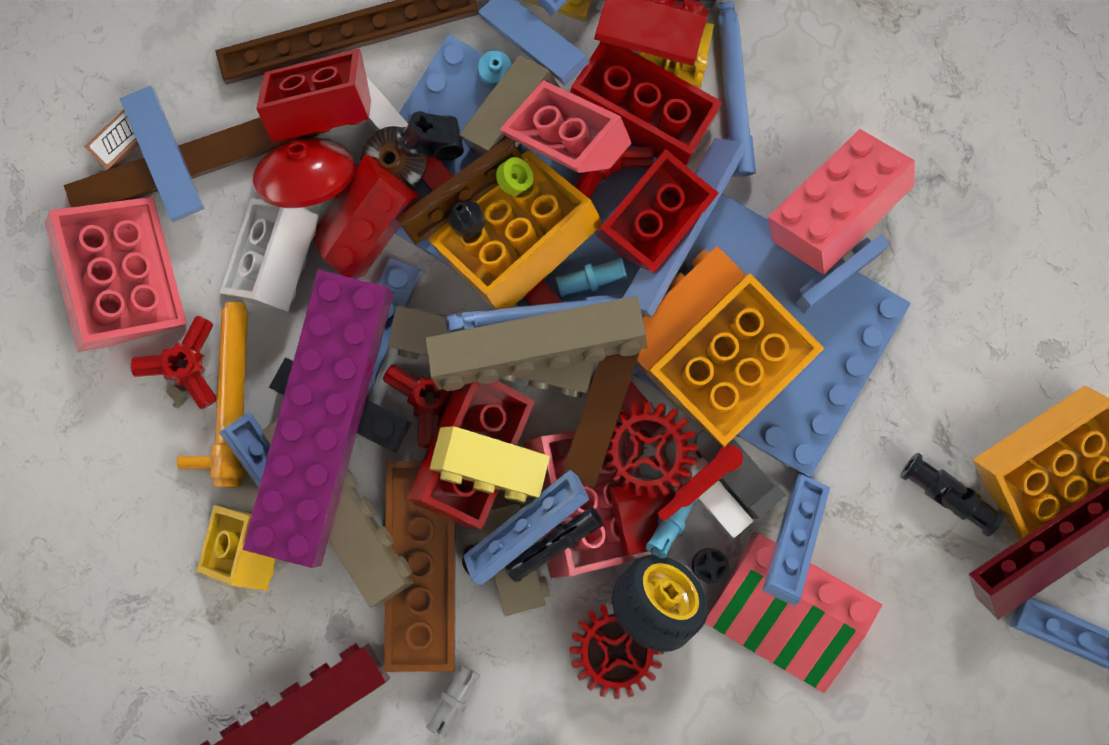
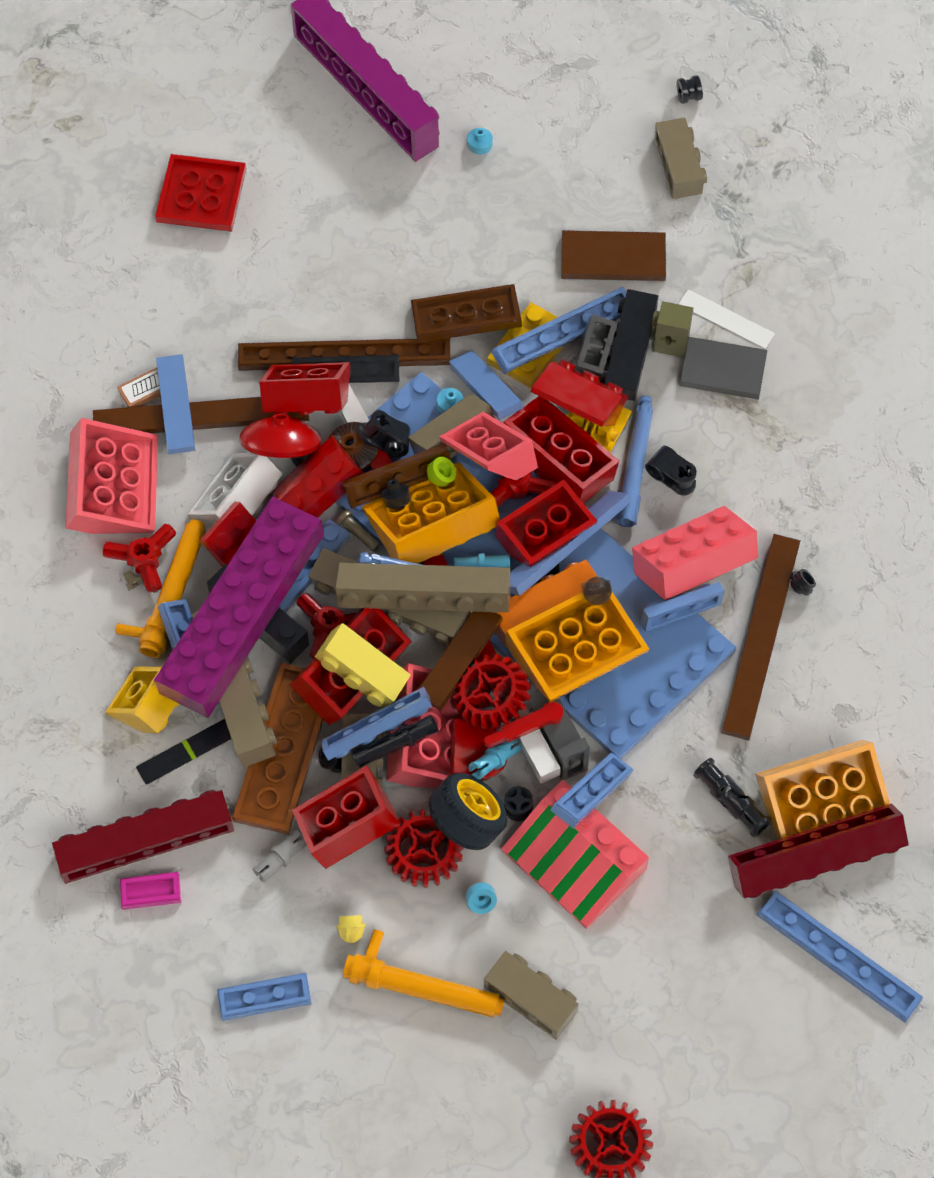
camera: 15 degrees right, 20 degrees down
(280, 316) = (228, 533): none -> red plate
(301, 599) = (184, 752): none -> black sticker
(377, 47) = (362, 368): none -> black tile
(411, 254) = (345, 519): none -> dark tan piece
(517, 644) = (345, 817): none -> red slope
(697, 692) = (481, 898): none -> medium azure tile
(746, 292) = (596, 590): none -> clear smoke plate
(778, 91) = (672, 471): none -> black piece
(935, 280) = (761, 637): none -> reddish brown tile
(968, 200) = (802, 582): none -> black plate

